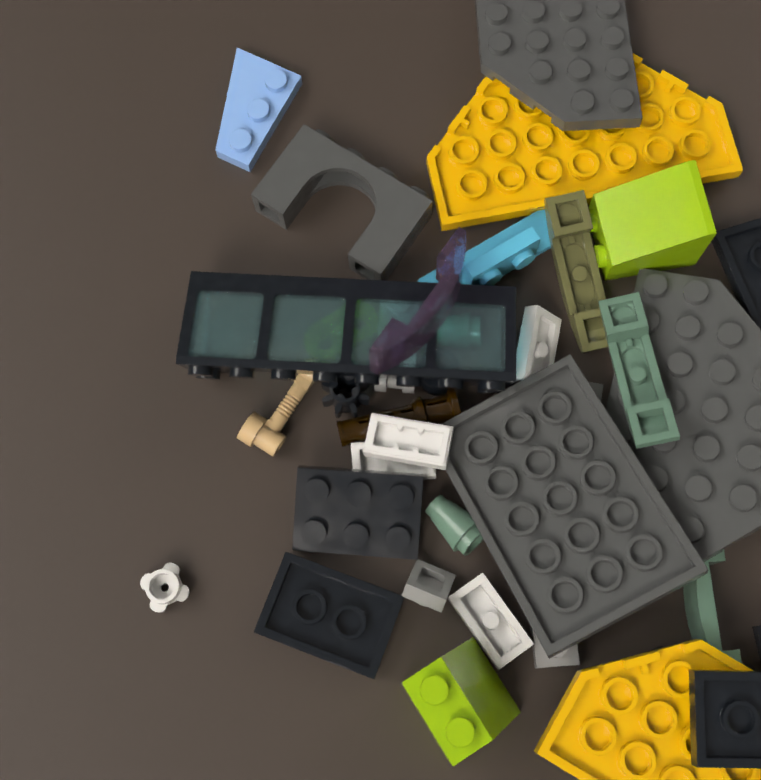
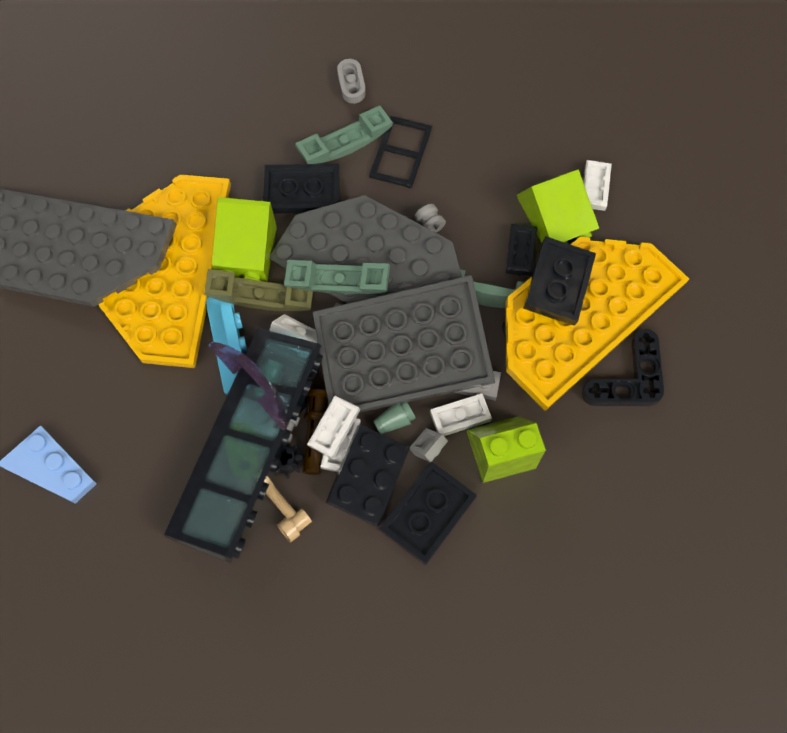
camera: 75 degrees left, 5 degrees down
(152, 585) = (373, 627): white plate -> none
(317, 162) = (113, 430): dark grey arch -> none

